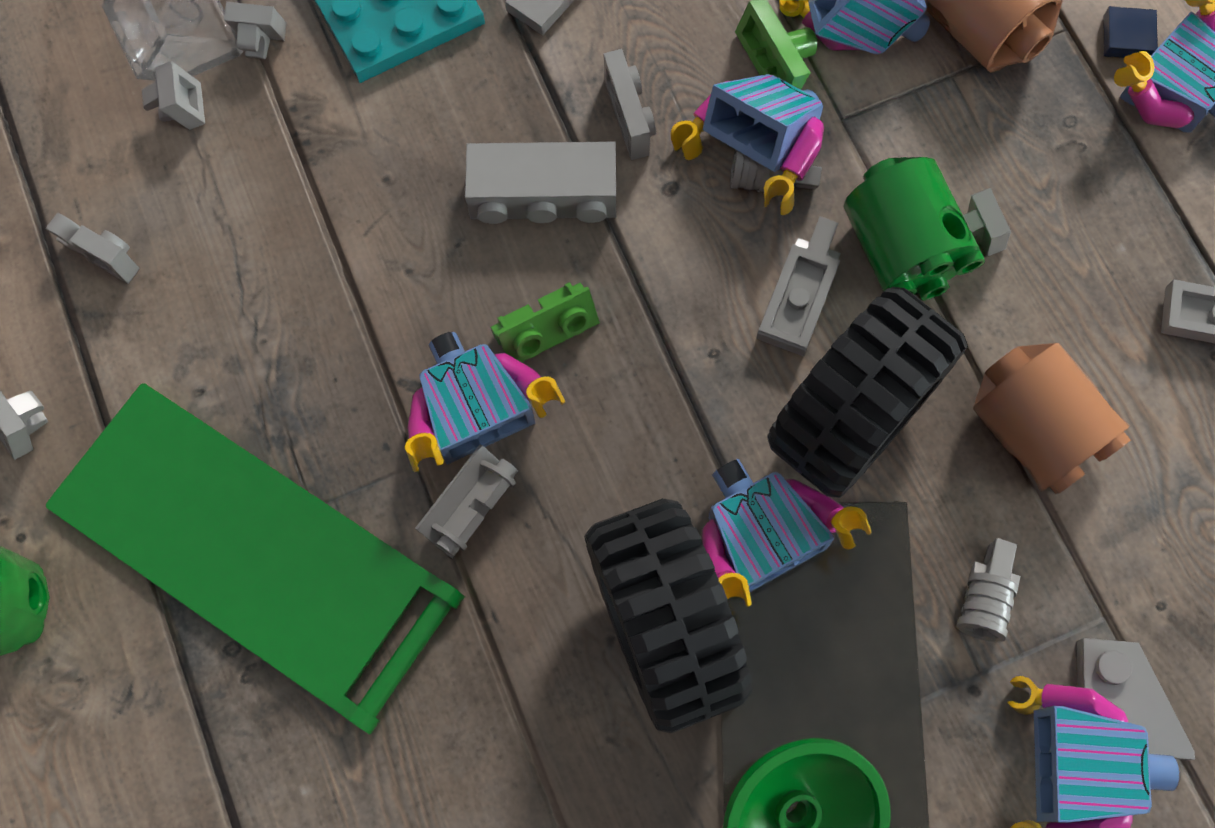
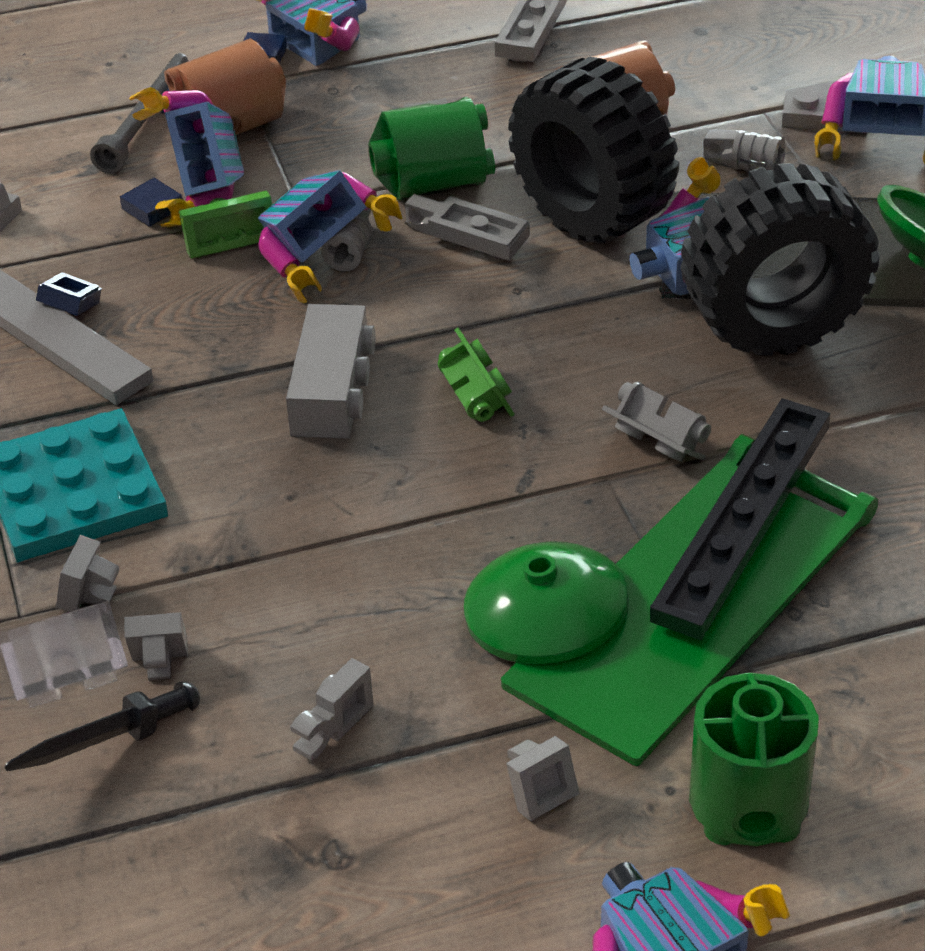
camera: 85 degrees left, 30 degrees down
(103, 101) = (137, 717): none -> black sword
(237, 439) = (546, 603): none -> green dish
(321, 590) = (739, 519): none -> black plate
(472, 401) = (555, 415): torso -> none
(623, 88) = (258, 313): light grey plate -> none

